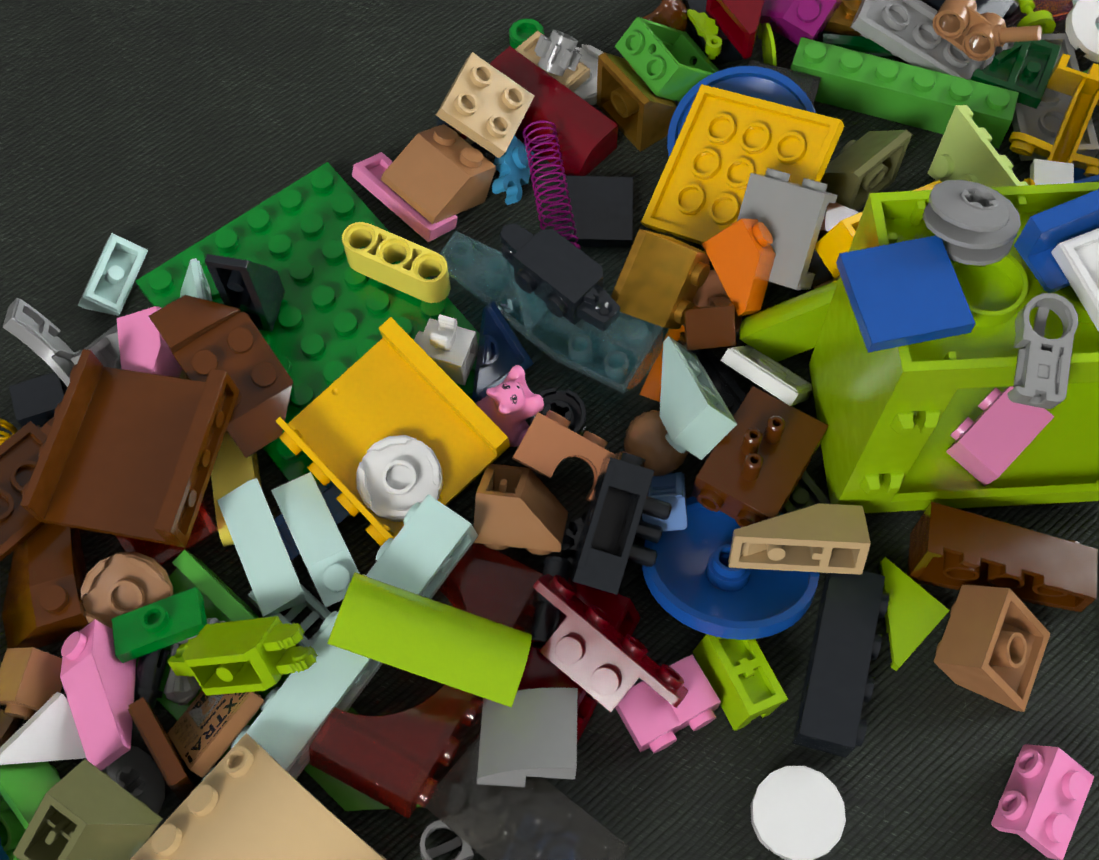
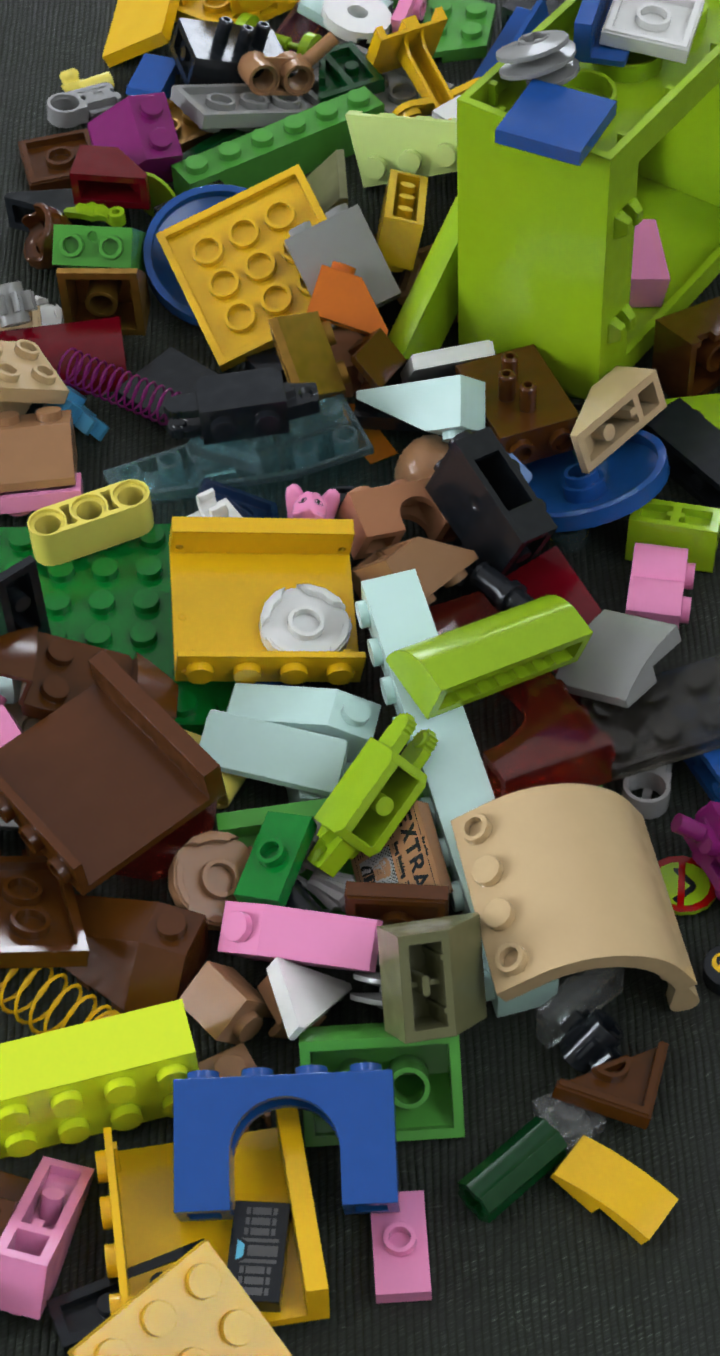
camera: 50 degrees left, 15 degrees down
(598, 654) = (590, 580): bracket -> none
(1043, 362) = (672, 90): light grey piece -> none

